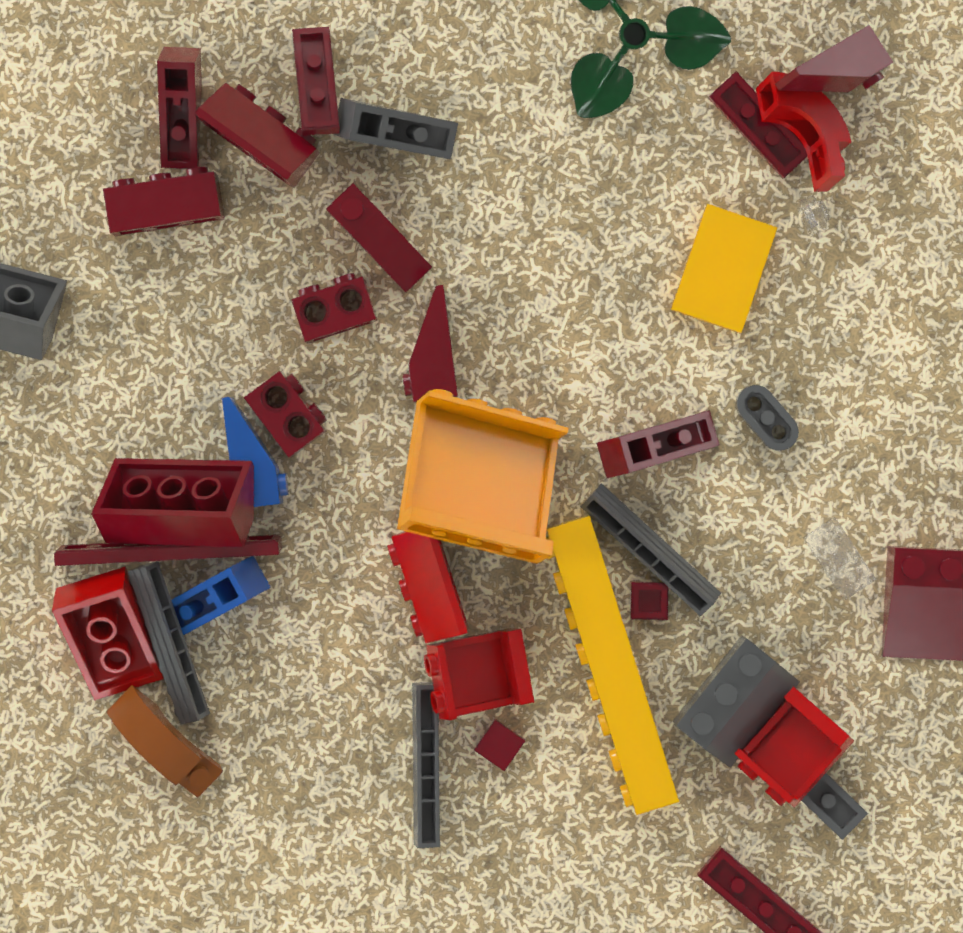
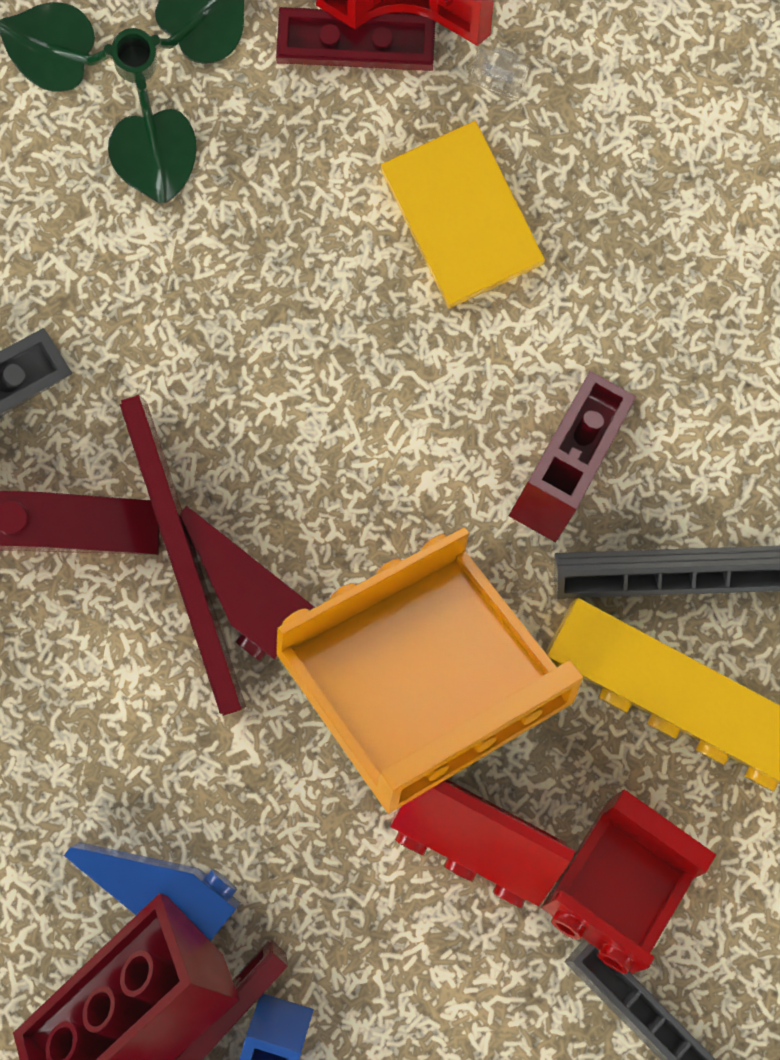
camera: 45 degrees left, 5 degrees down
(279, 419) = (150, 818): dark red brick -> none
(336, 318) = (109, 651): dark red brick -> none
(417, 306) = (182, 555): none -> dark red tile
(499, 745) = (721, 936): dark red tile -> none
(649, 601) = (725, 627): dark red tile -> none
(766, 417) = (655, 317): dark grey plate -> none

